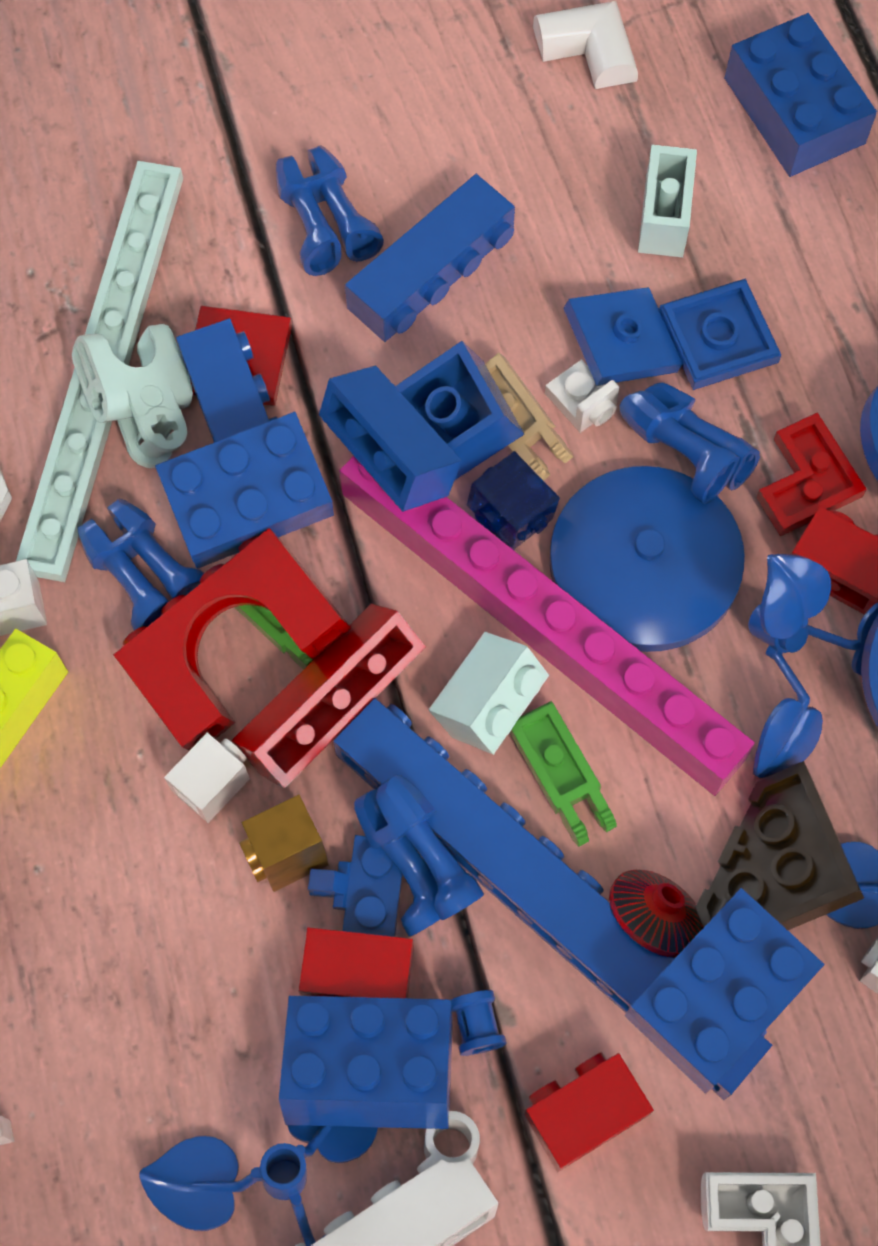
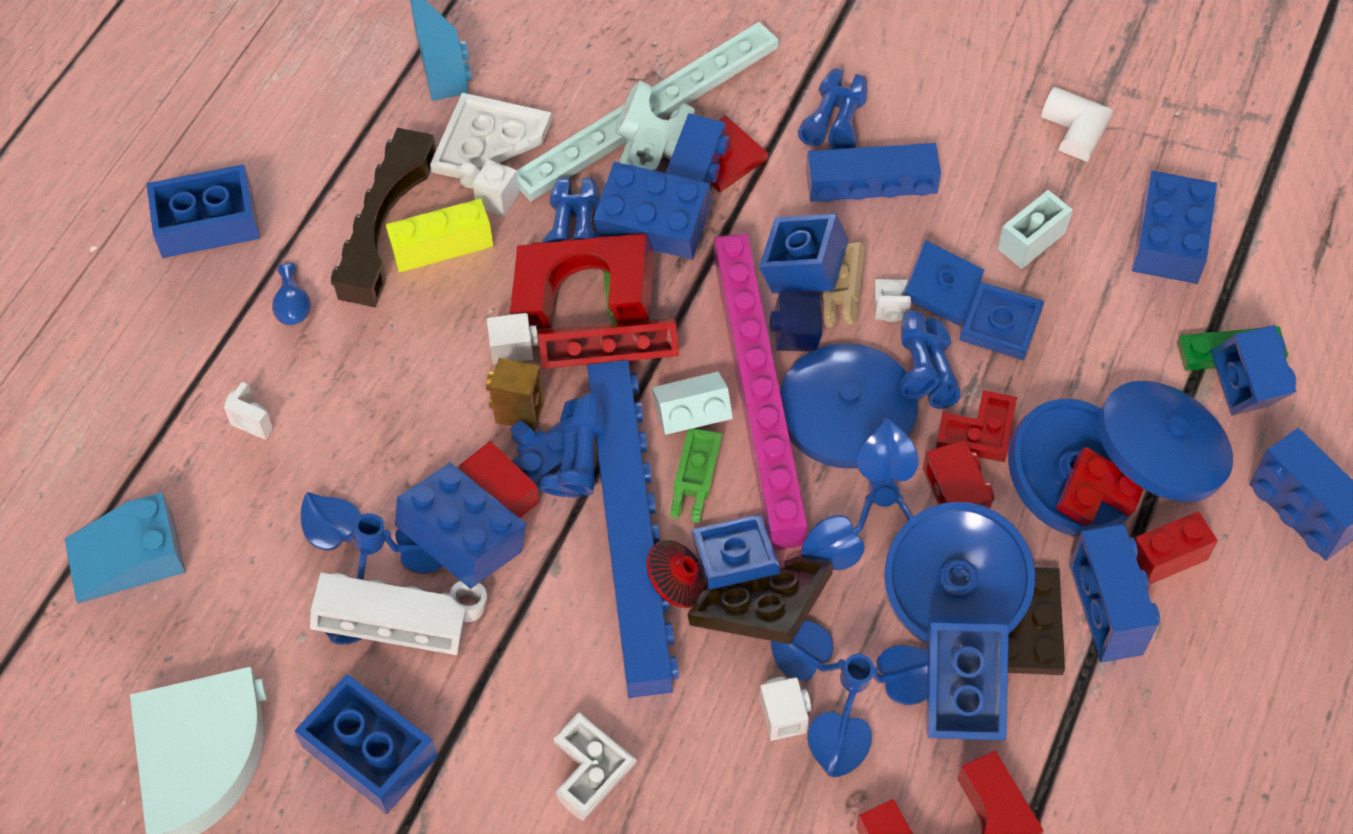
camera: 40 degrees right, 10 degrees down
(389, 438) = (751, 234): blue brick -> none
(477, 1023) = (534, 556): blue bush -> none
(587, 1110) = (548, 639): red brick -> none
(689, 831) = (735, 551): none -> blue plate
(723, 990) = (667, 623): blue brick -> none

